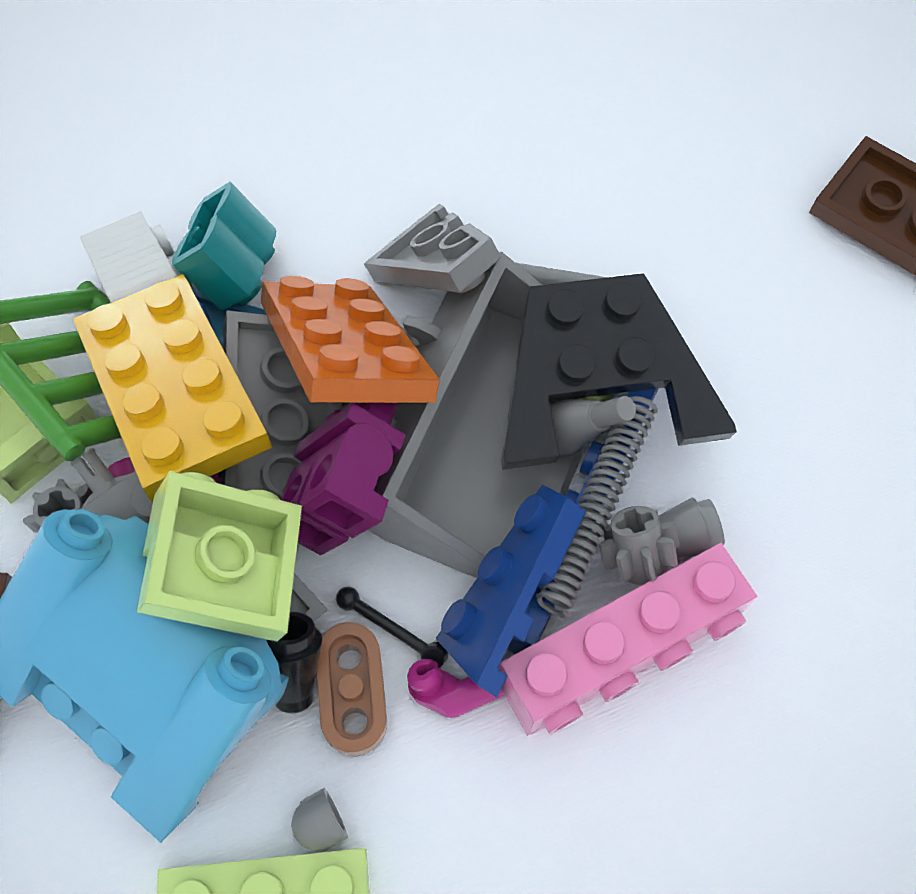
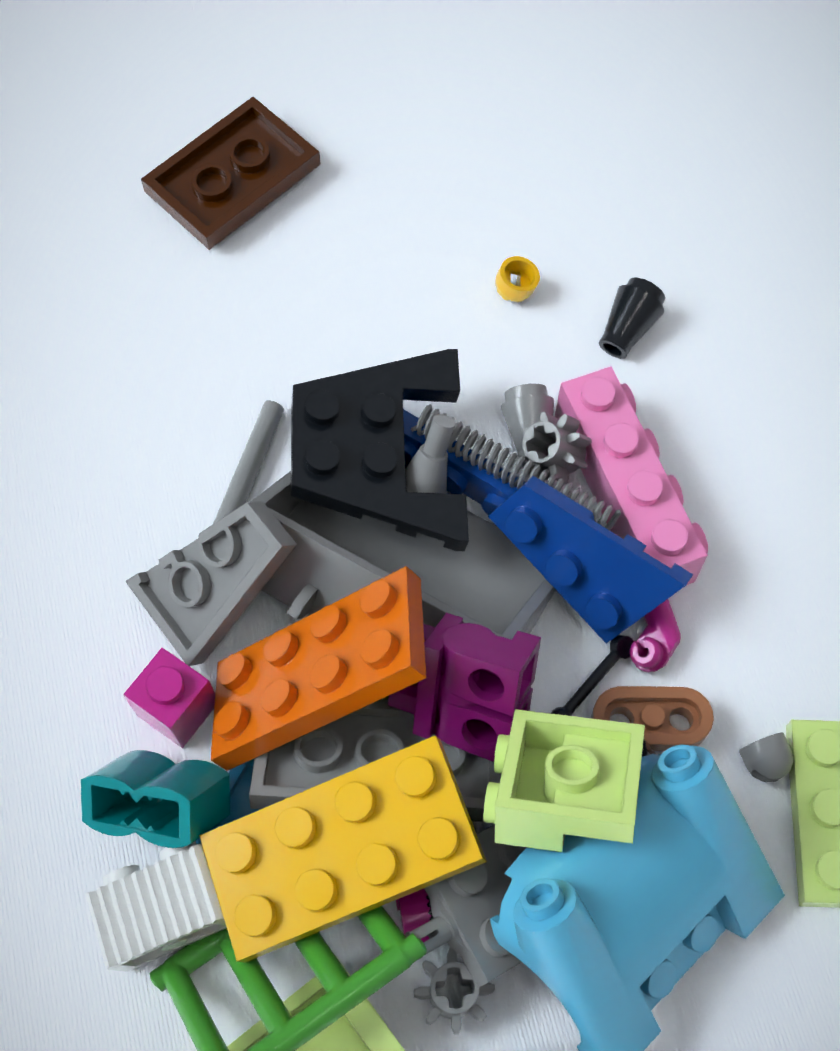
camera: 80 degrees left, 0 degrees up
(325, 245) = (171, 697): none -> dark pink brick
(848, 632) = (631, 316): none -> black cone
(860, 487) = (526, 281): none -> yellow hinge

